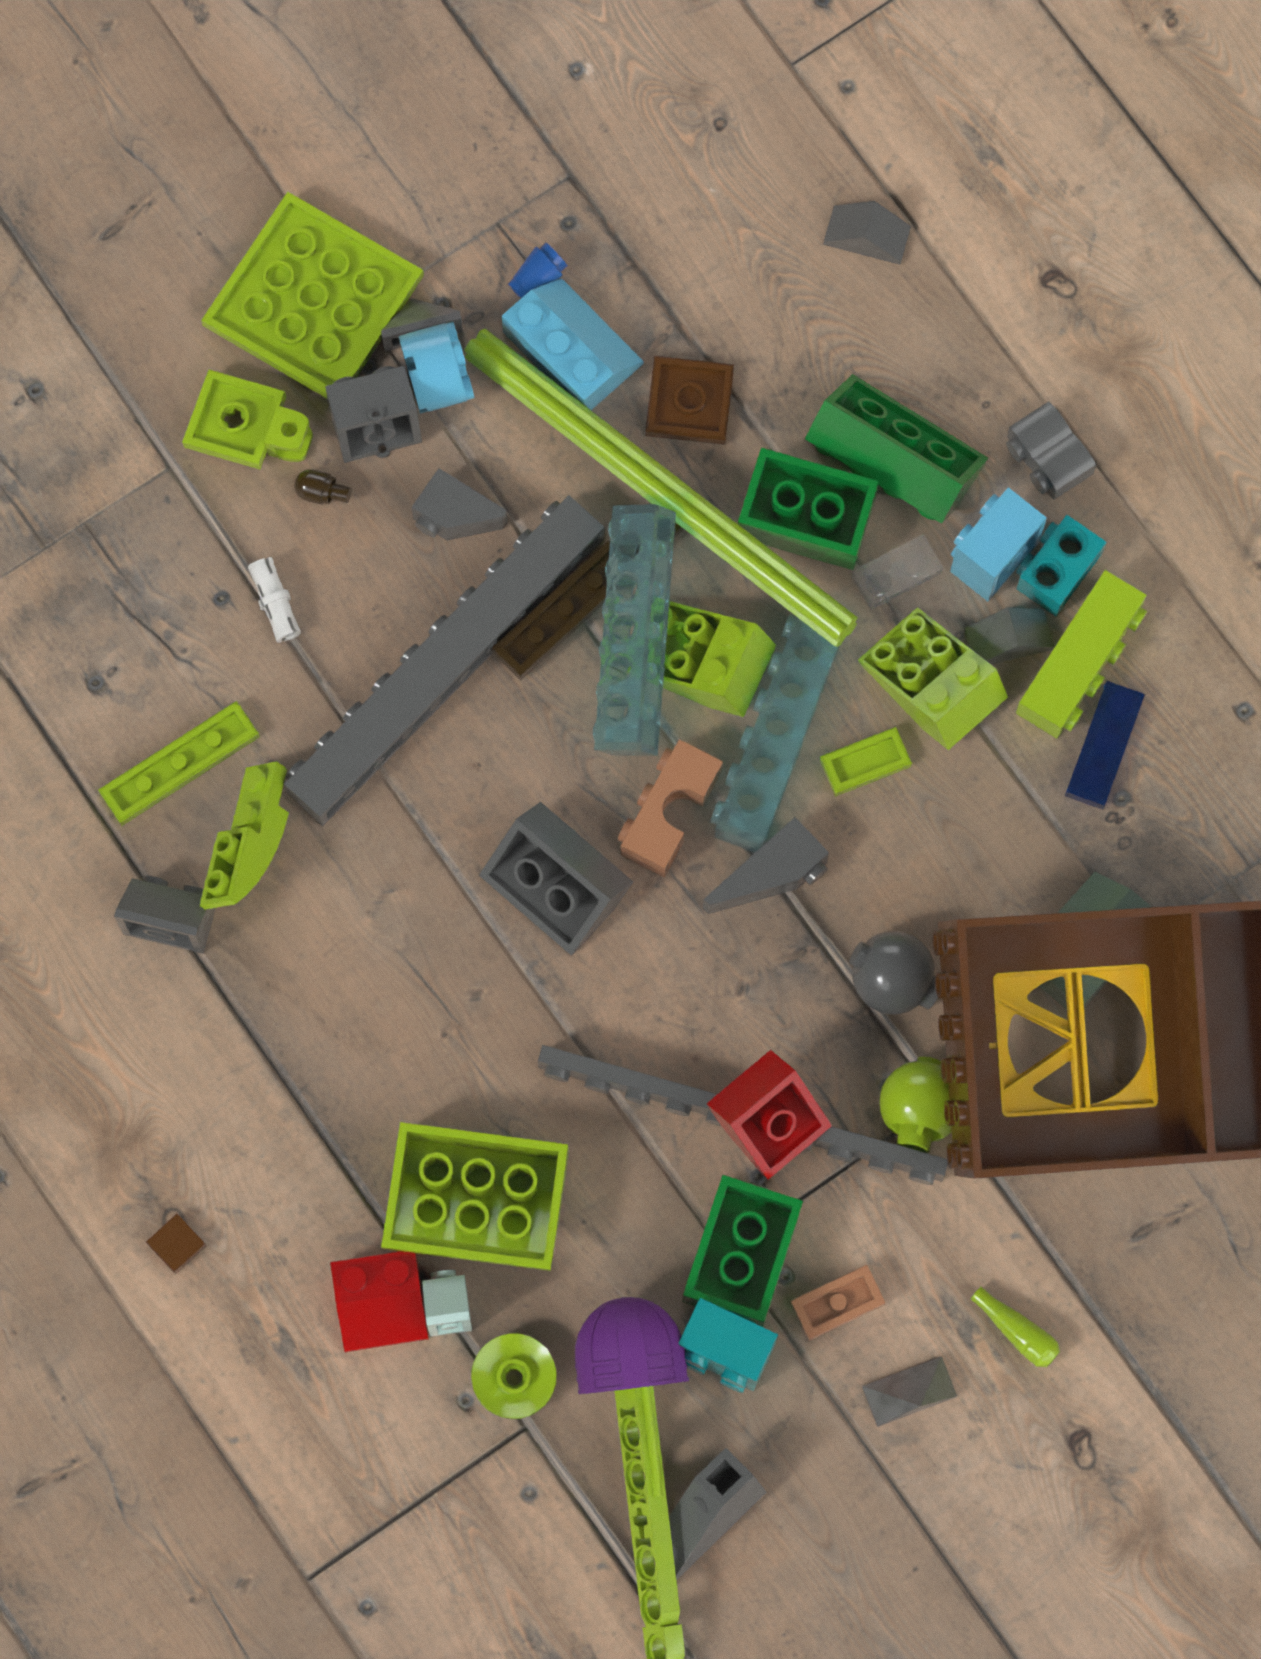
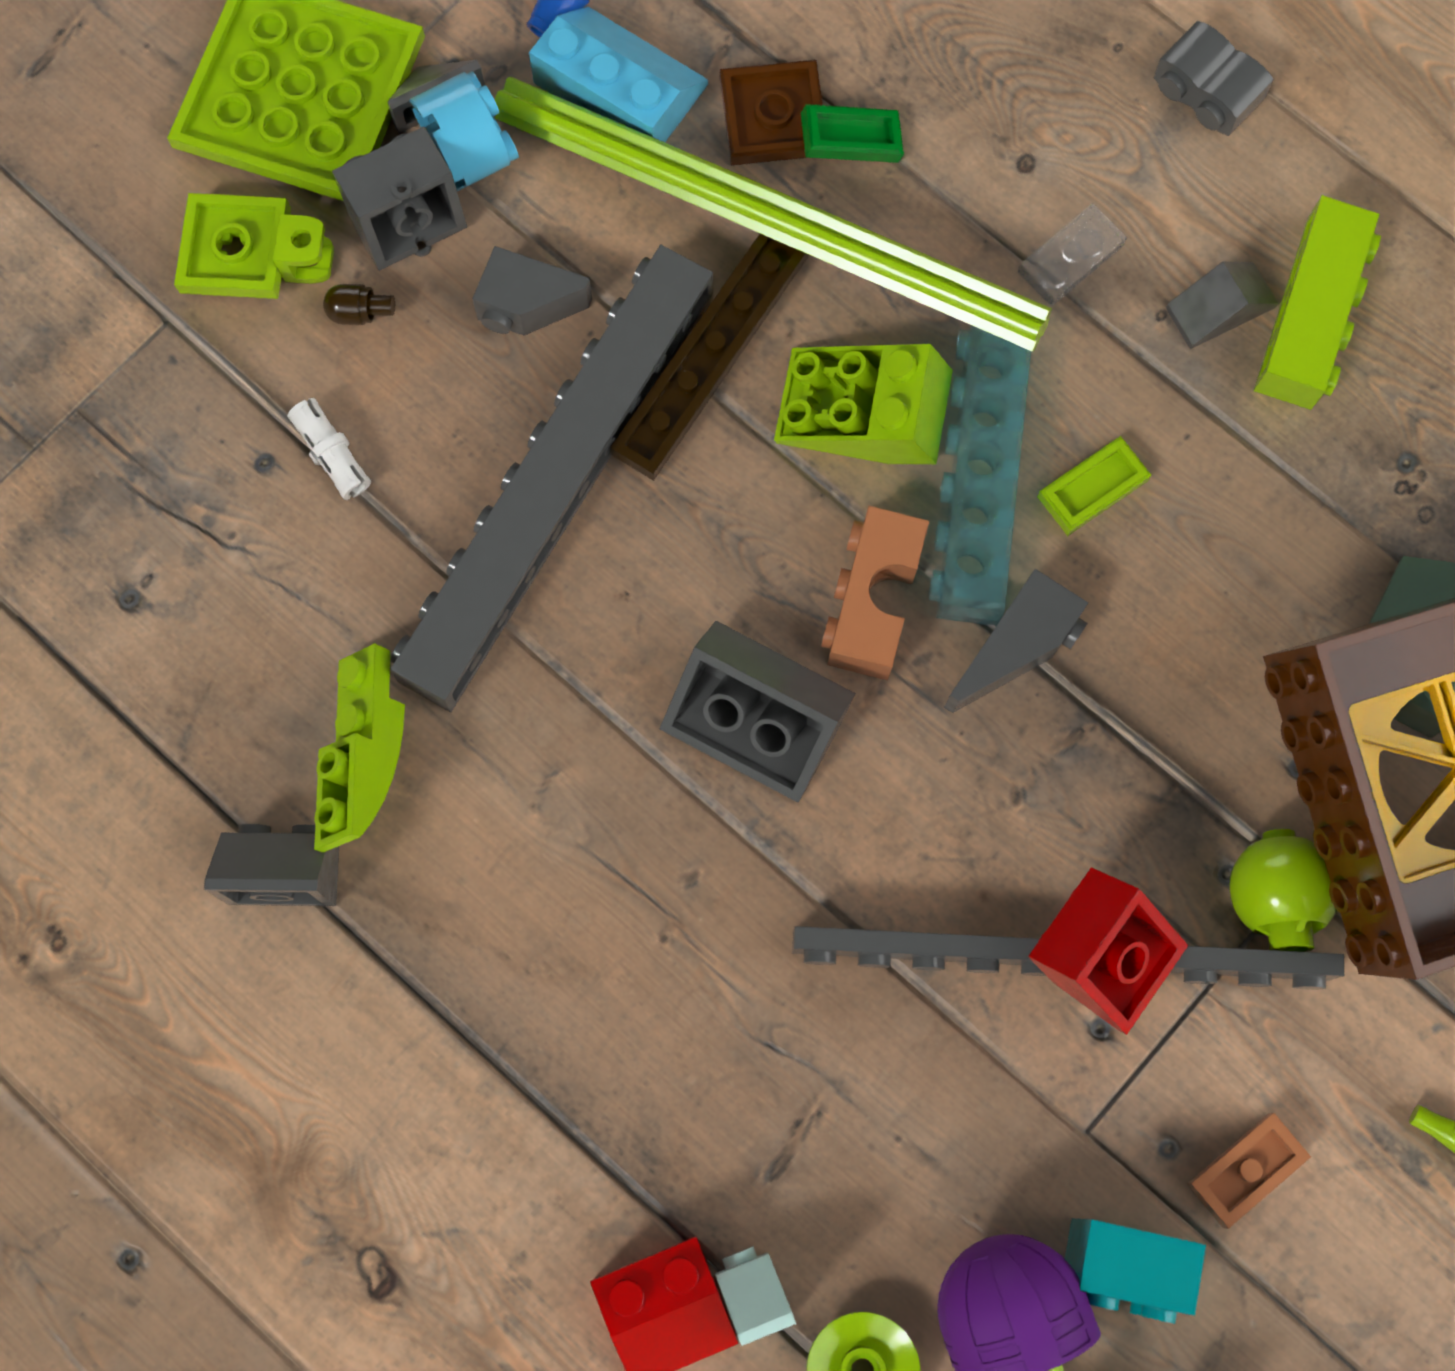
camera: 15 degrees left, 0 degrees up
(176, 1243) = (381, 1296): reddish brown tile -> none
(179, 763) = (253, 674): lime tile -> none
(475, 1196) = (759, 1148): lime slope -> none
(646, 647) = (815, 509): clear light blue brick -> none
(743, 1249) = (1116, 1134): green brick -> none
(744, 431) = (852, 133): none -> green tile
(808, 508) = (953, 198): green brick -> none
(894, 973) = (1207, 733): dark grey brick -> none
(896, 448) = (1031, 116): green slope -> none
(909, 1391) = (1368, 1265): flat silver slope -> none
(934, 677) = (1152, 367): lime slope -> none
(997, 543) = (1185, 190): medium azure brick -> none
(1066, 568) = (1265, 206): teal brick -> none
(1104, 745) = (1371, 404): clear blue plate -> none

